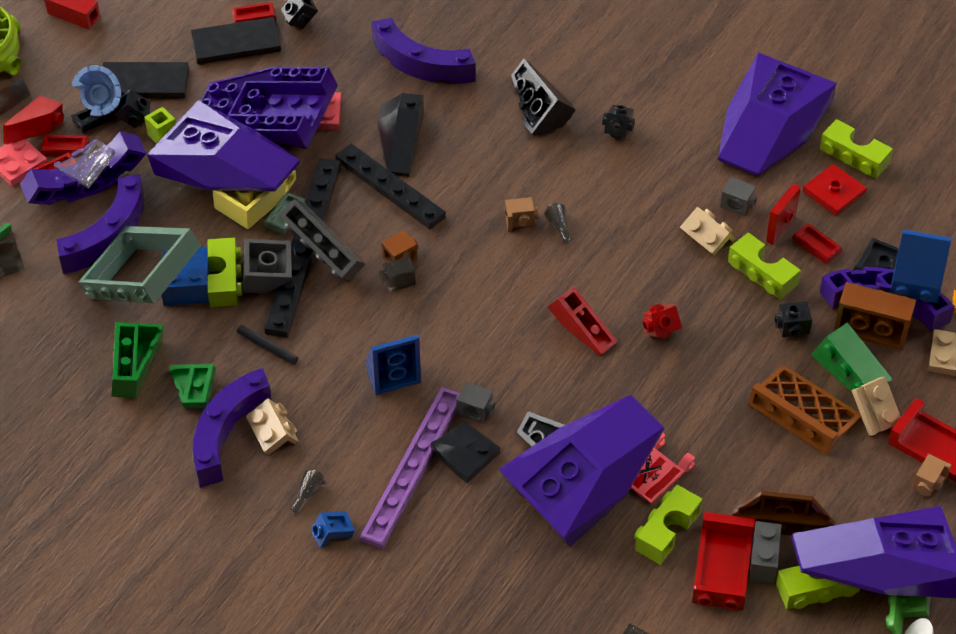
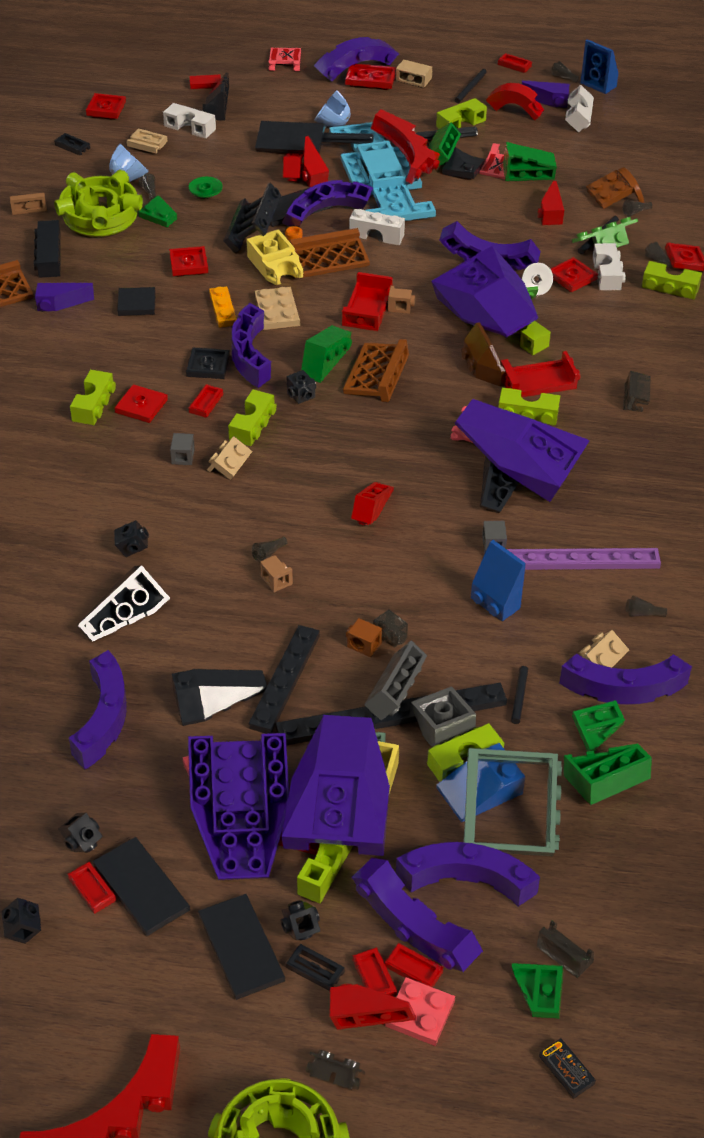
camera: 115 degrees left, 5 degrees down
(86, 163) = (415, 904): clear wing -> none
(98, 89) = (306, 943): light blue hair -> none
(332, 525) = (668, 578): blue bracket -> none
(465, 451) = (538, 532): black plate -> none
(661, 320) = (346, 453): red brick -> none
(765, 552) = (520, 352): dark grey brick -> none
(772, 114) = (73, 453): dark purple wedge -> none
(783, 214) = (197, 411): red plate -> none
(875, 315) = (276, 342): dark orange brick -> none
(876, 405) = (359, 328): tan plate -> none
(920, 266) = (242, 307): blue slope -> none

